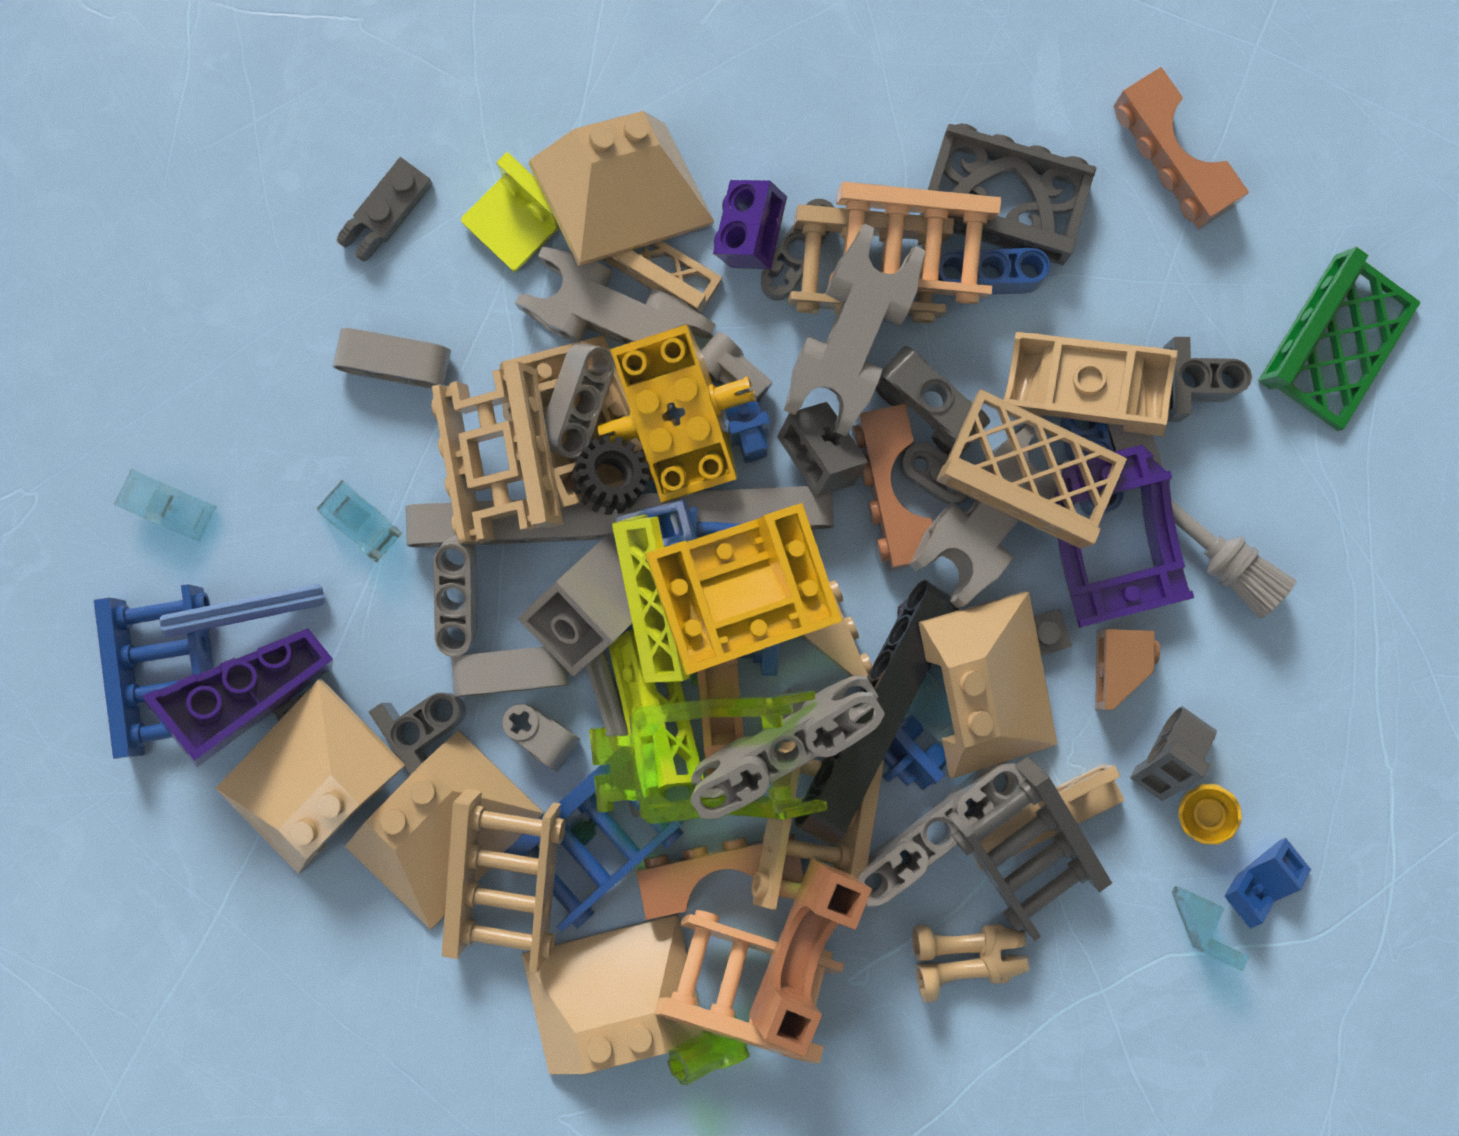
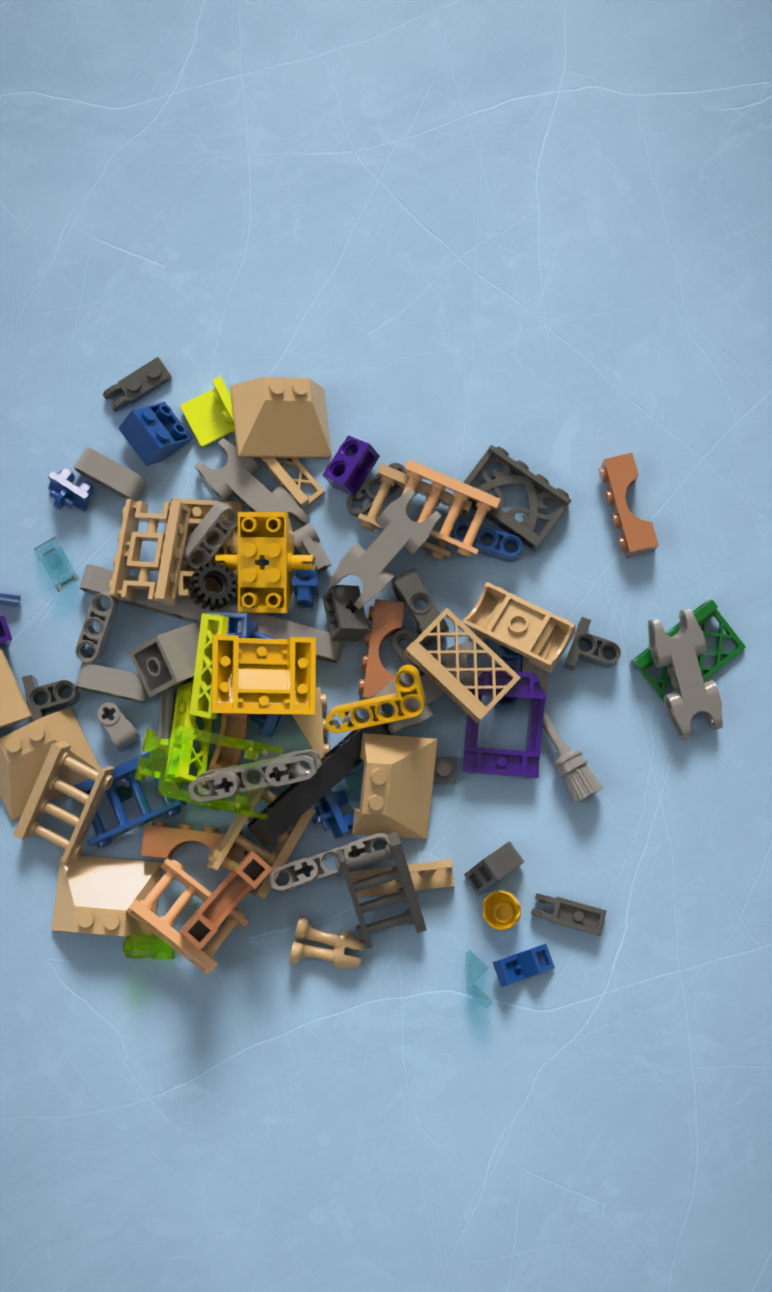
camera: 20 degrees right, 5 degrees down
(338, 408) = (67, 493): none -> blue hips
(436, 273) = (154, 432): none -> blue slope
(927, 574) = (374, 708): none -> yellow beam
(1122, 664) = (483, 802): medium nougat slope -> none
(1311, 783) = (572, 914): none -> dark grey hinge
(1346, 352) = (689, 689): none -> light grey piece

